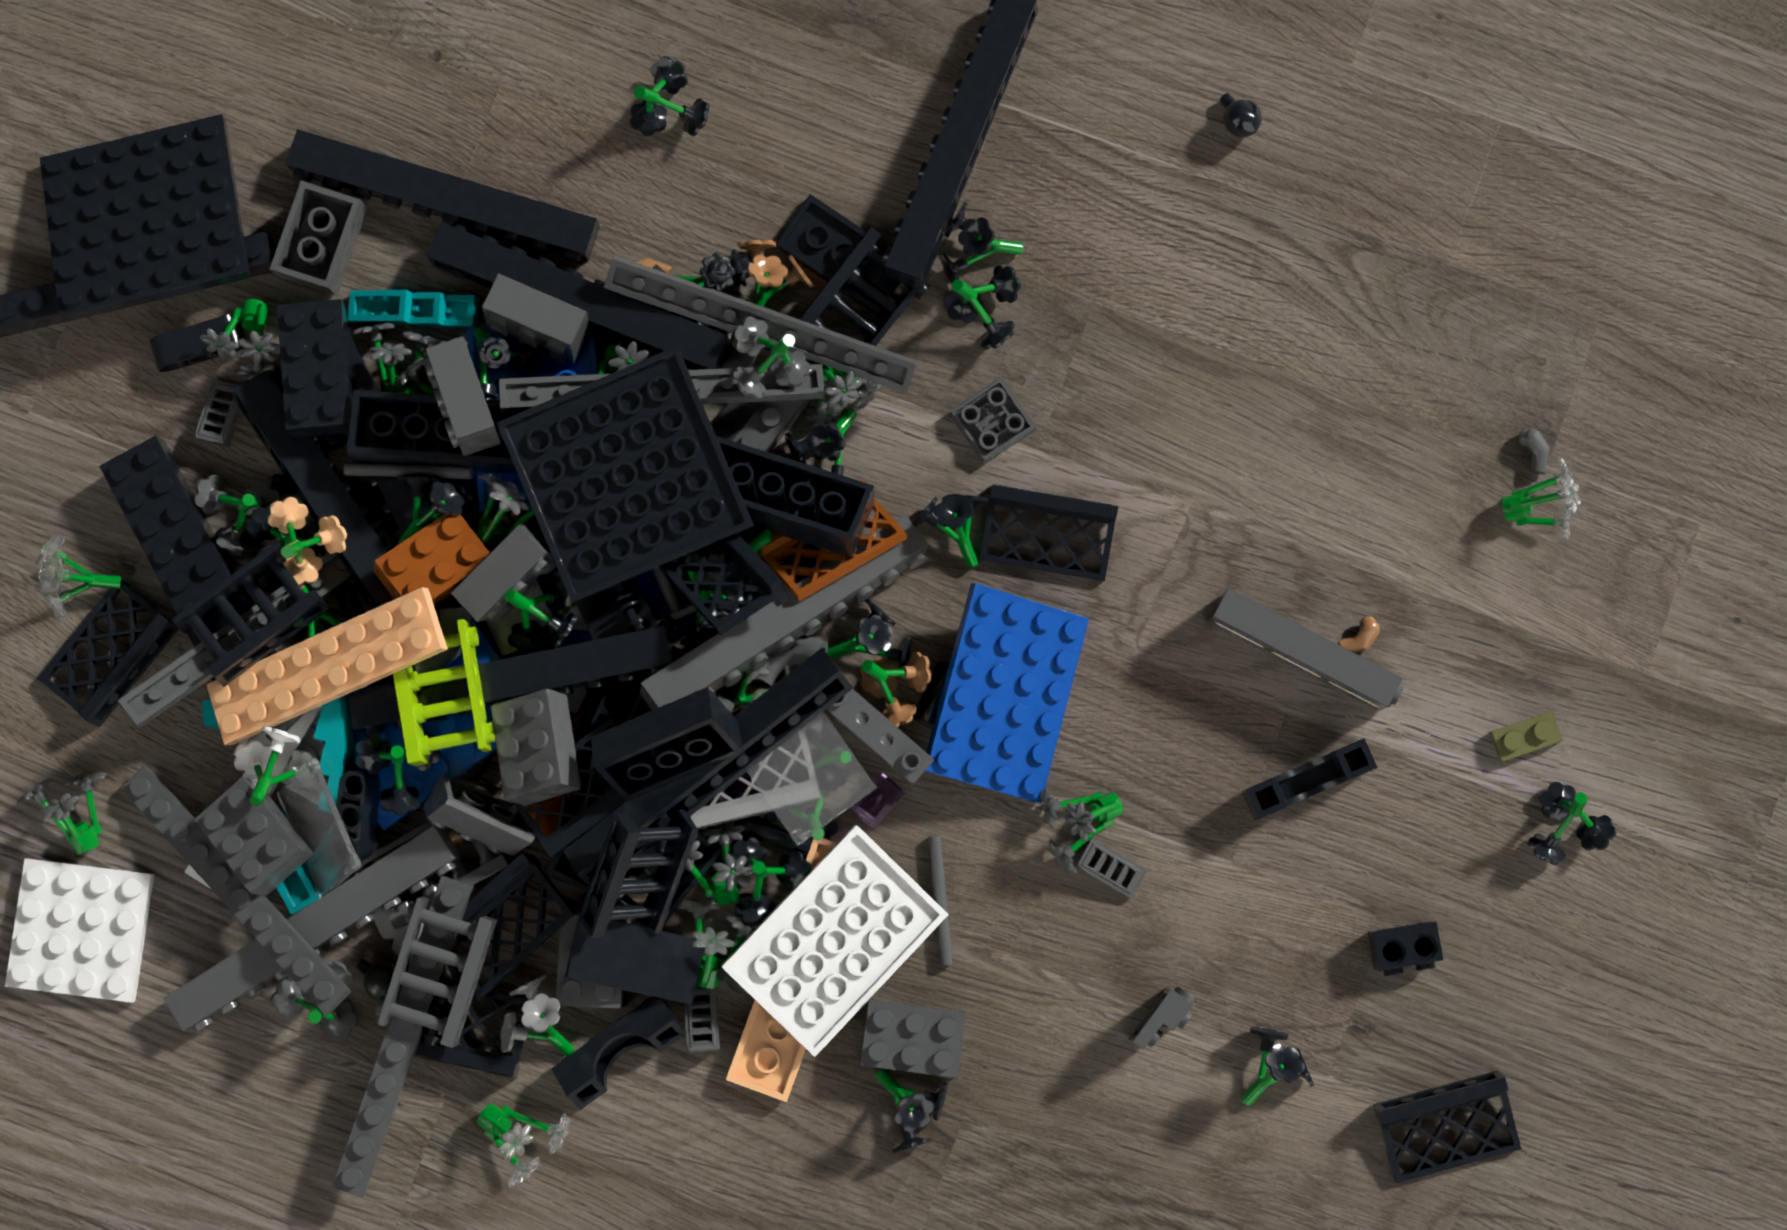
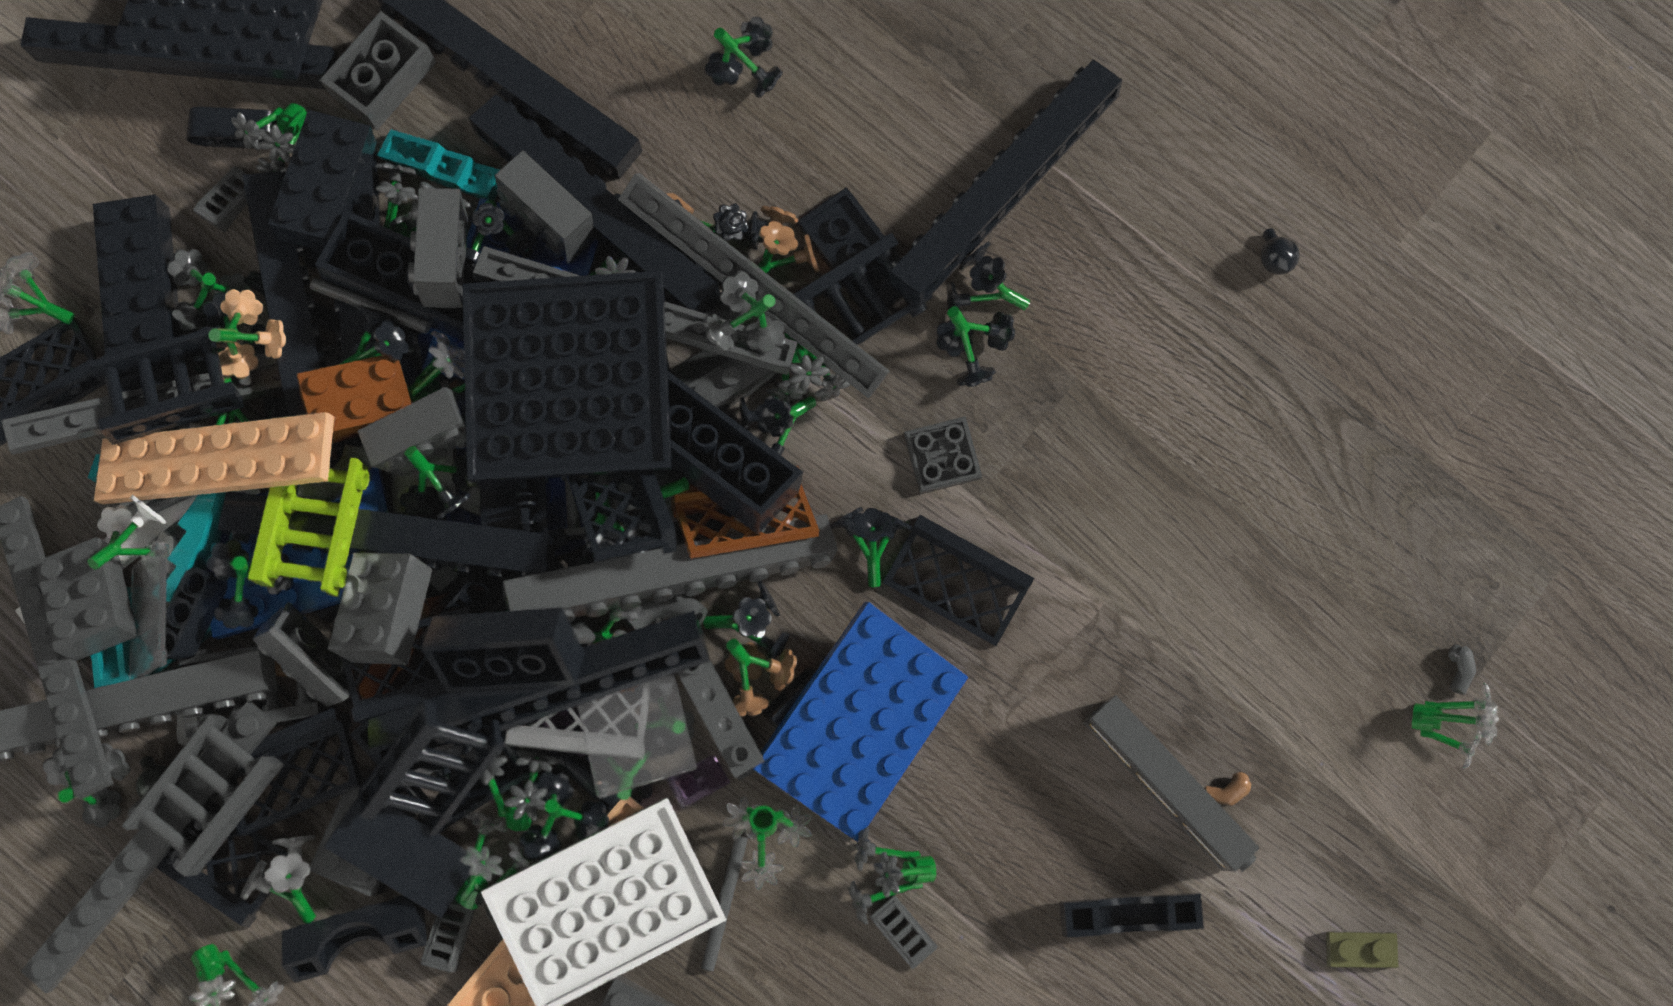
camera: 15 degrees right, 5 degrees down
(953, 815) = (763, 823): none -> clear plant

